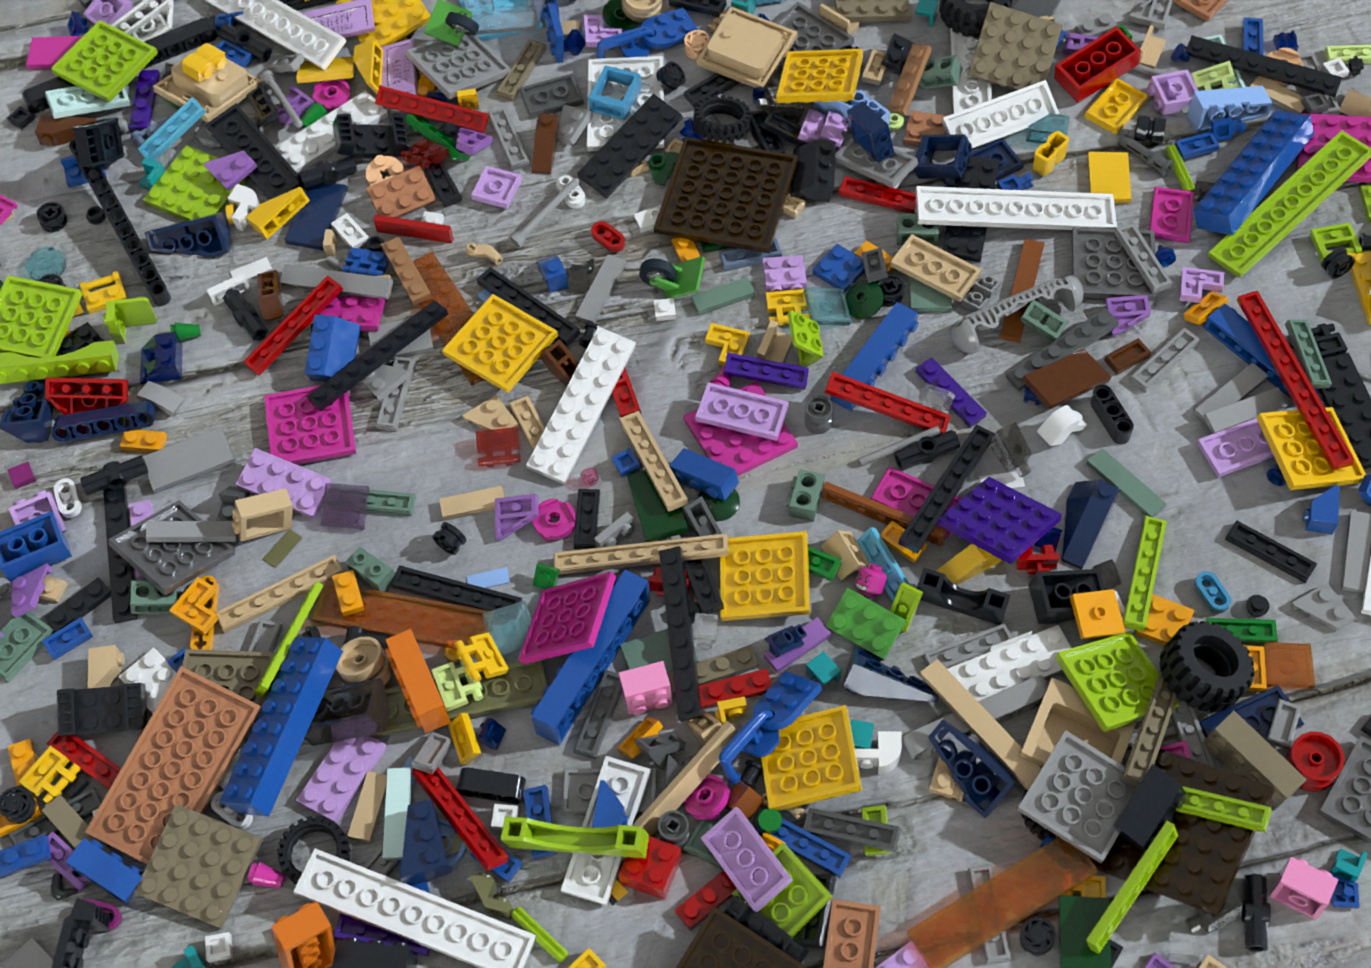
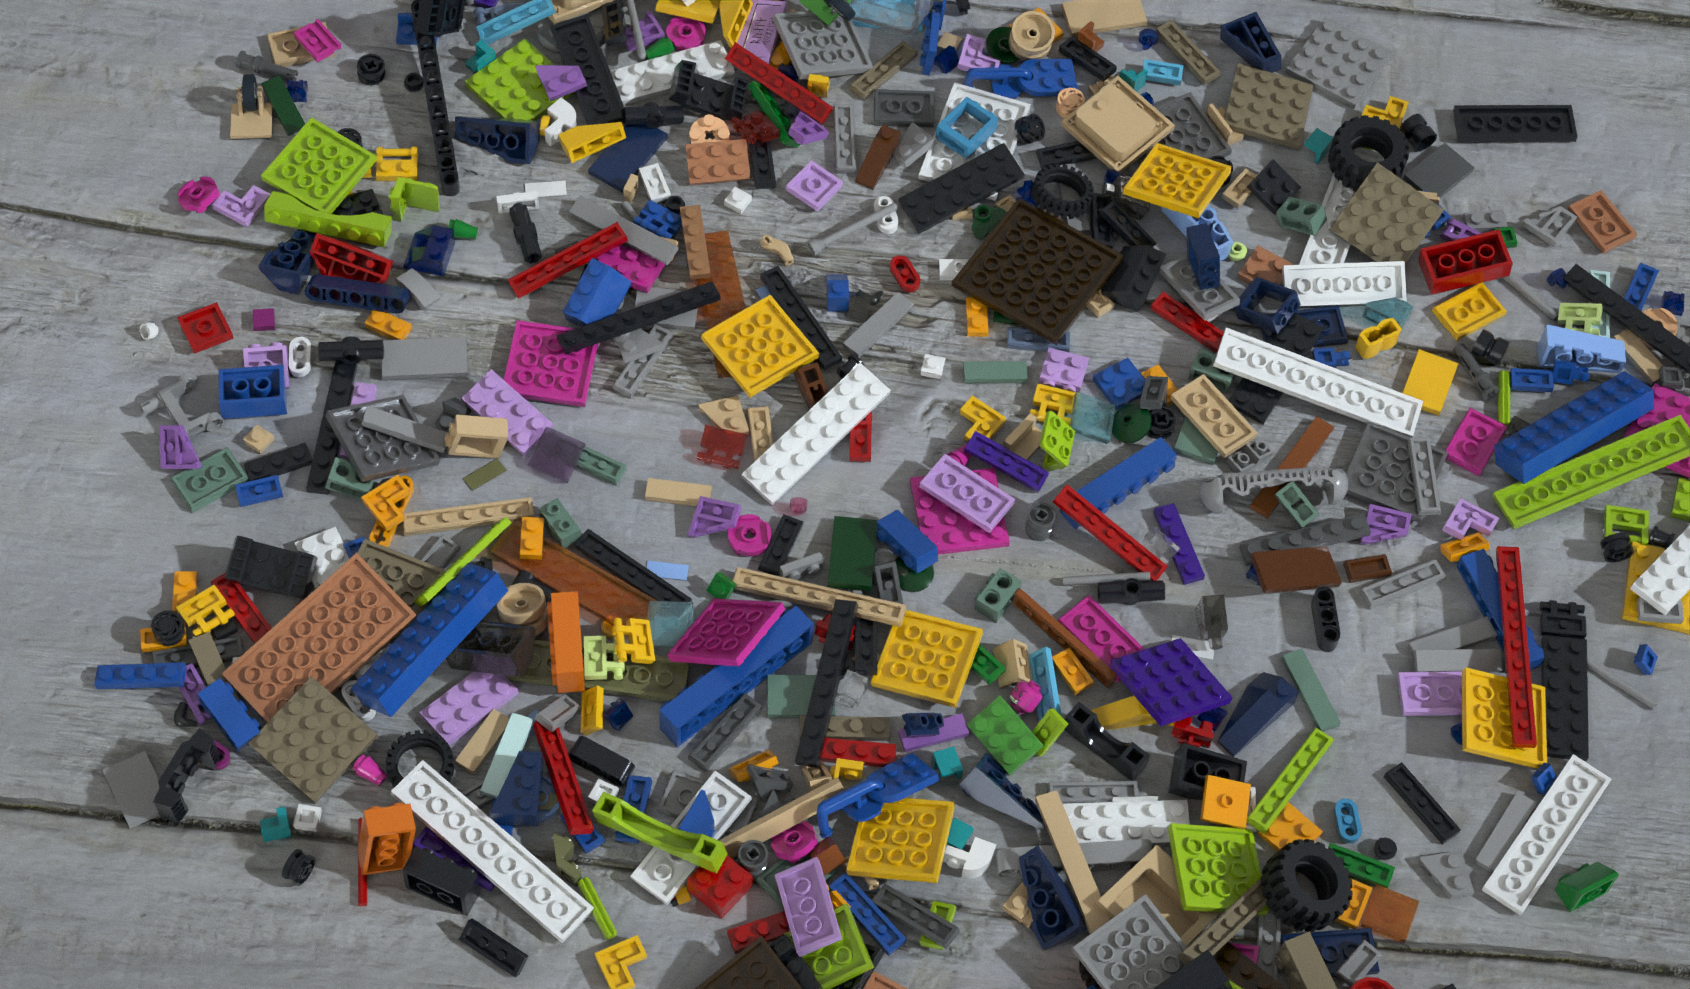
camera: 10 degrees right, 0 degrees up
(27, 590) = (236, 432): medium lavender wing -> none
(44, 262) = (350, 114): clear light blue tile -> none
(104, 665) = (285, 528): tan slope -> none
(270, 295) = (555, 221): reddish brown slope -> none
(413, 228) = (717, 201): red tile -> none
(449, 538) = (644, 519): black wheel -> none
(625, 462) = (837, 504): blue plate -> none
(645, 688) = (775, 722): bright pink brick -> none
(653, 461) = (863, 511): tan plate -> none
(673, 279) = (953, 340): bright green plate -> none
(751, 773) = (843, 834): black bush -> none
(770, 821) = (843, 882): green tile -> none
(823, 127) = (1161, 234): lavender plate -> none
(909, 79) = (1268, 213): medium nougat plate -> none
(946, 489) = (1133, 635): black plate -> none
(1060, 425) = (1269, 612): white brick -> none
(1109, 574) = (1255, 770): clear smoke slope -> none
(1151, 49) = (1529, 264): tan panel -> none
(1165, 256) = (1447, 481): clear blue tile -> none
(1171, 91) = (1530, 315): lavender plate -> none
(1308, 353) = (1542, 626): sand green tile -> none
(1323, 512) = (1488, 782): blue slope -> none

